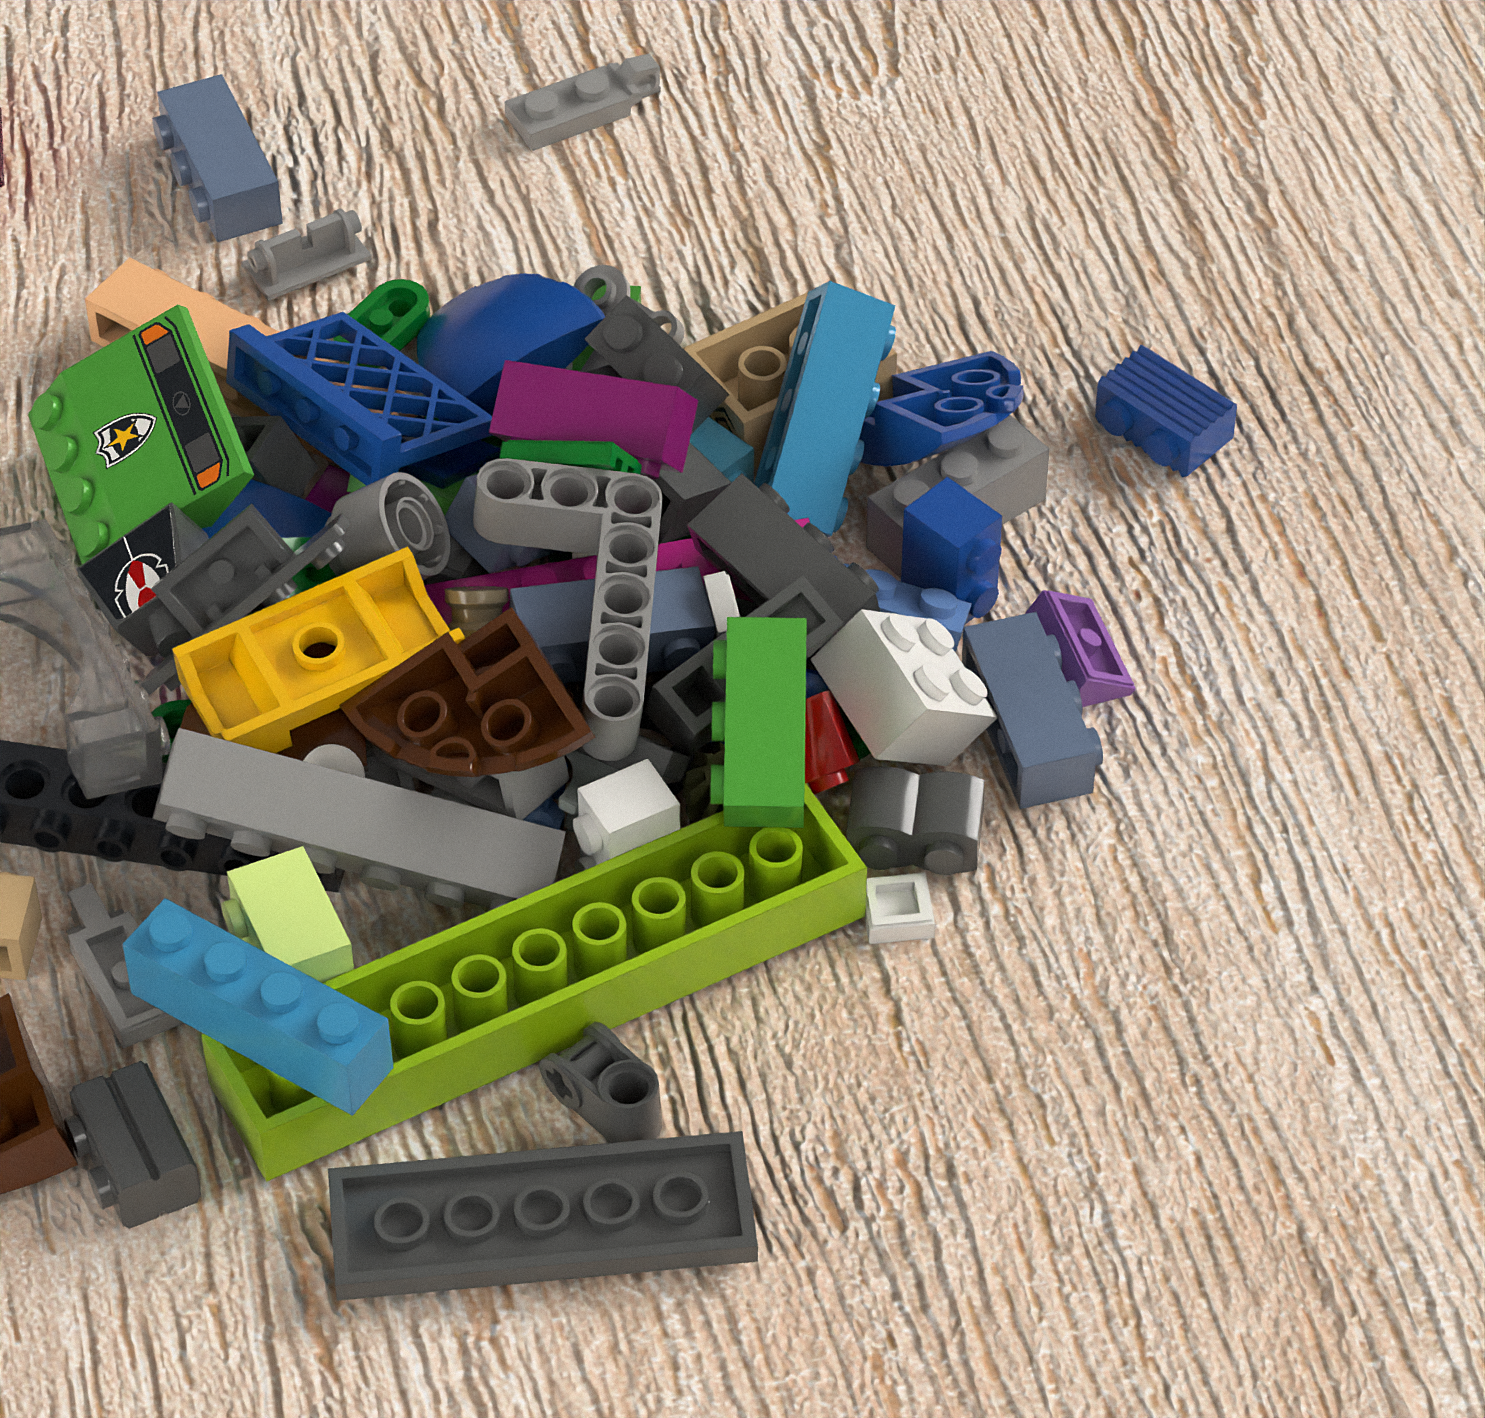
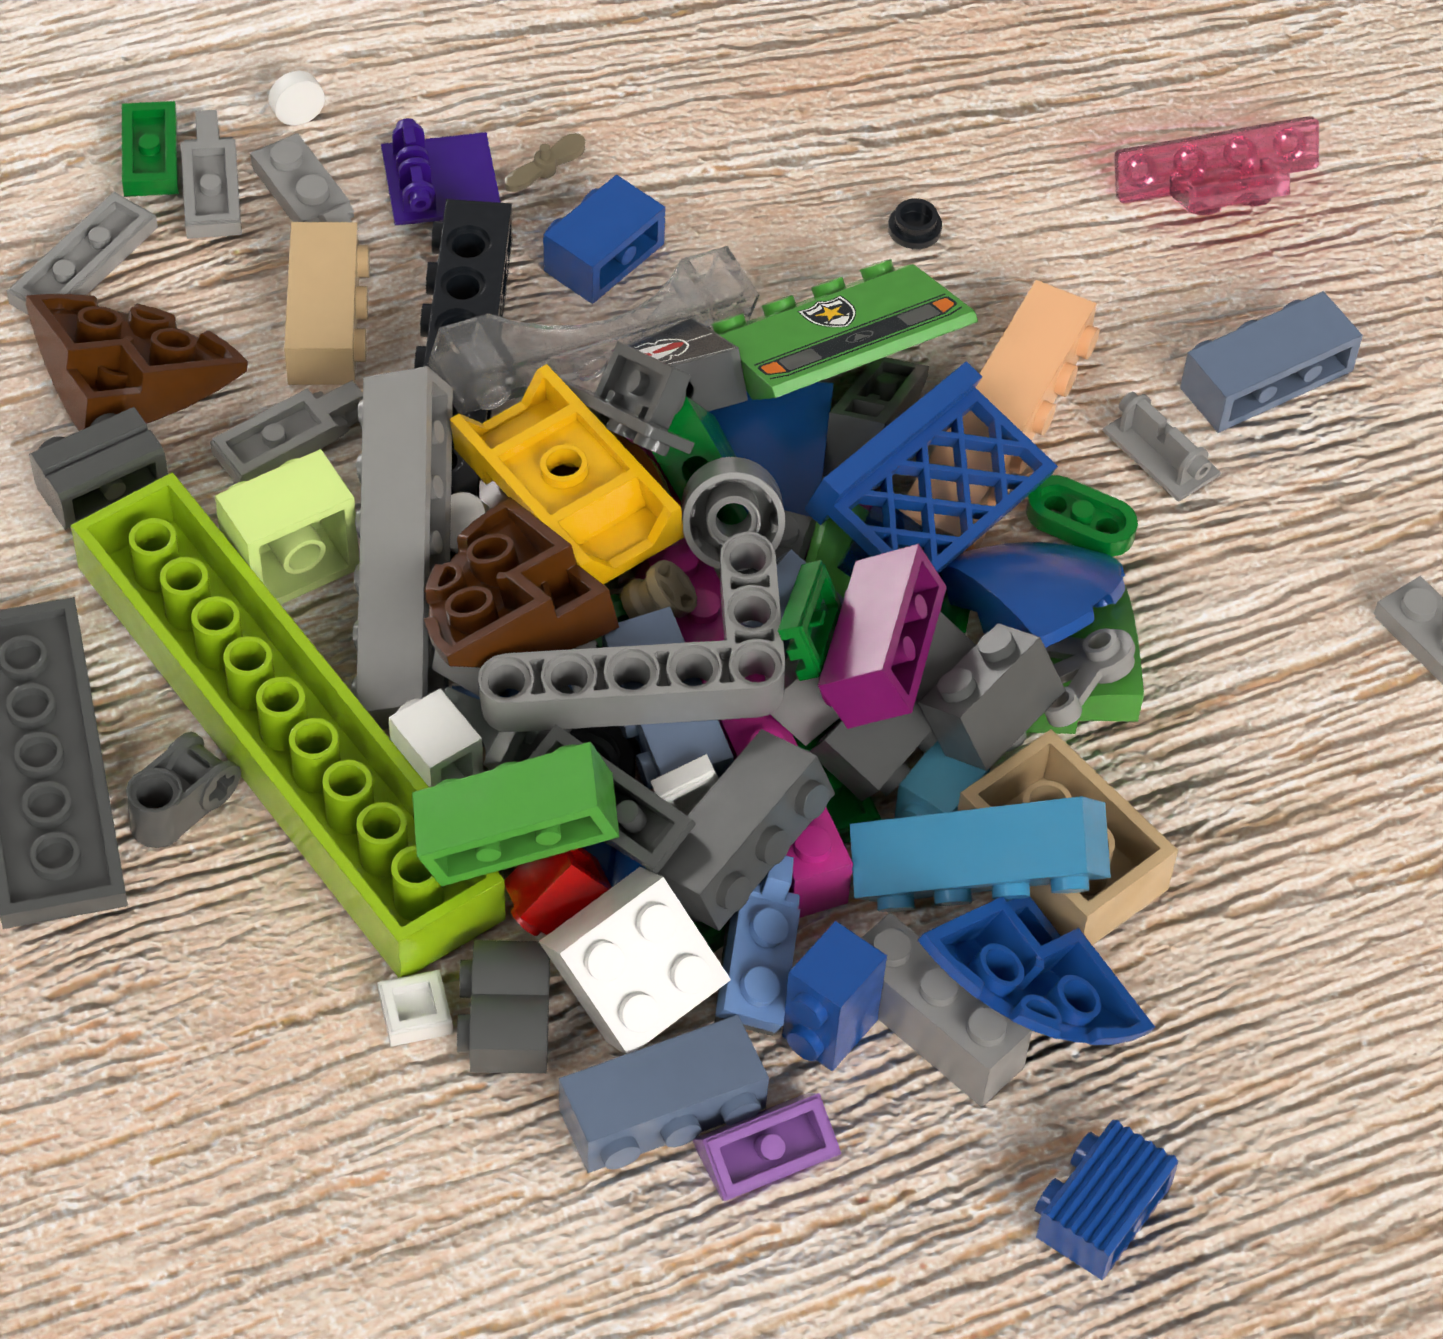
camera: 80 degrees right, 5 degrees up
(259, 1006) = (173, 490): dark azure brick -> none

